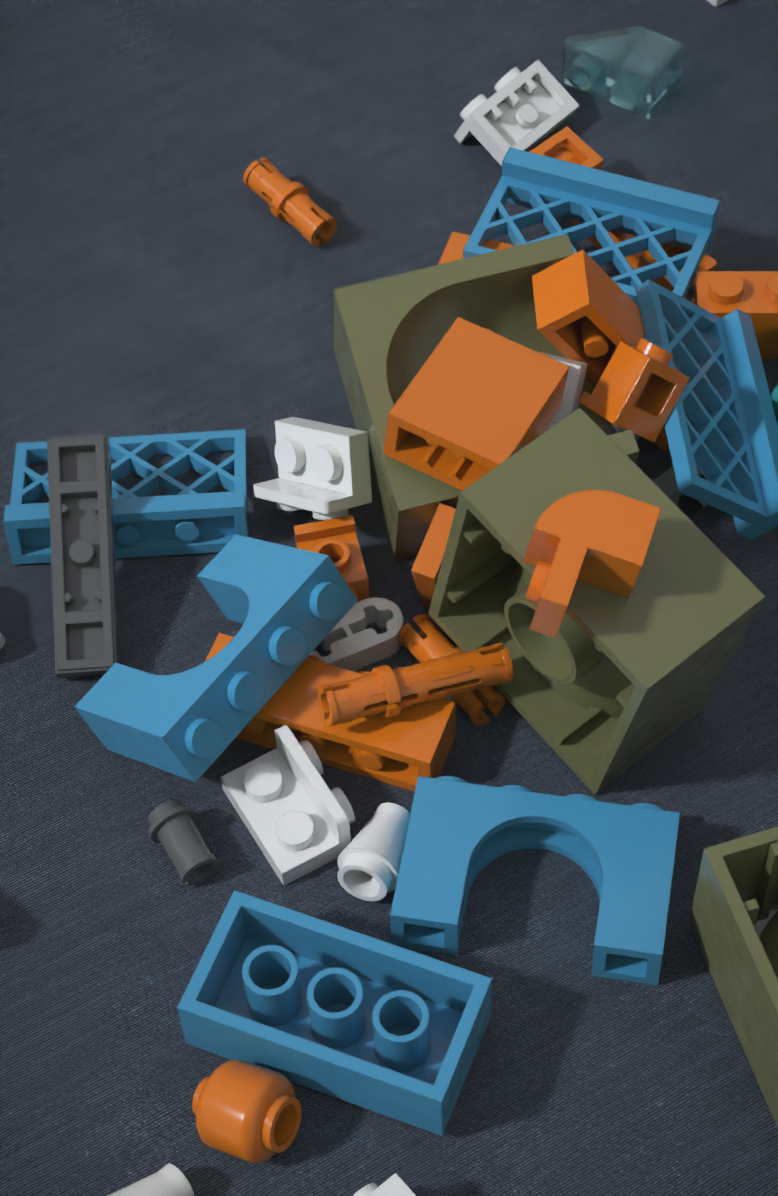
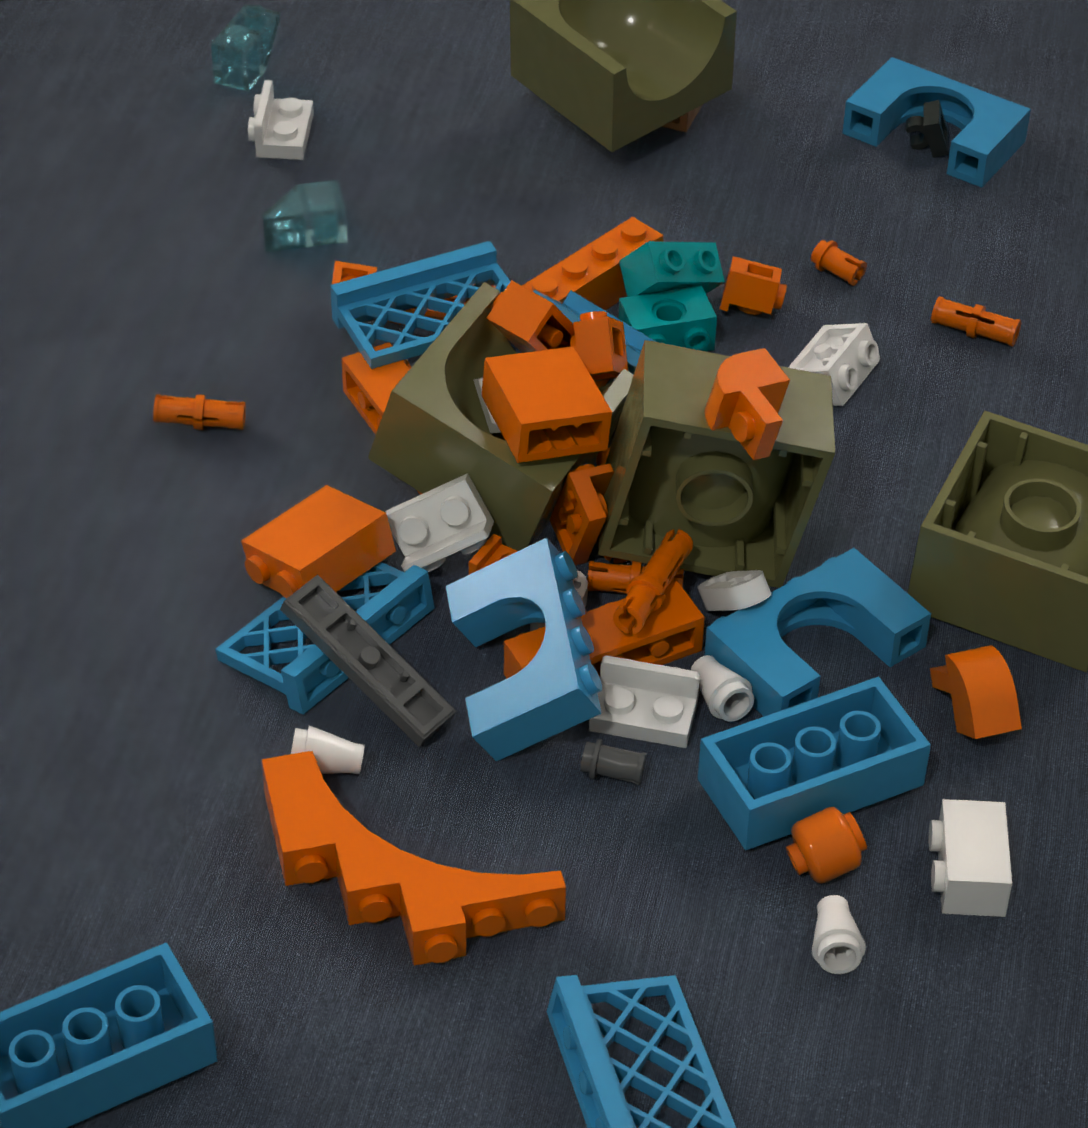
camera: 50 degrees left, 10 degrees down
(198, 409) = (320, 536): none -> orange brick
(505, 759) = (734, 590): none -> white beam
(519, 113) = (274, 279): white bracket -> none
(606, 1088) = (980, 692): none -> orange brick

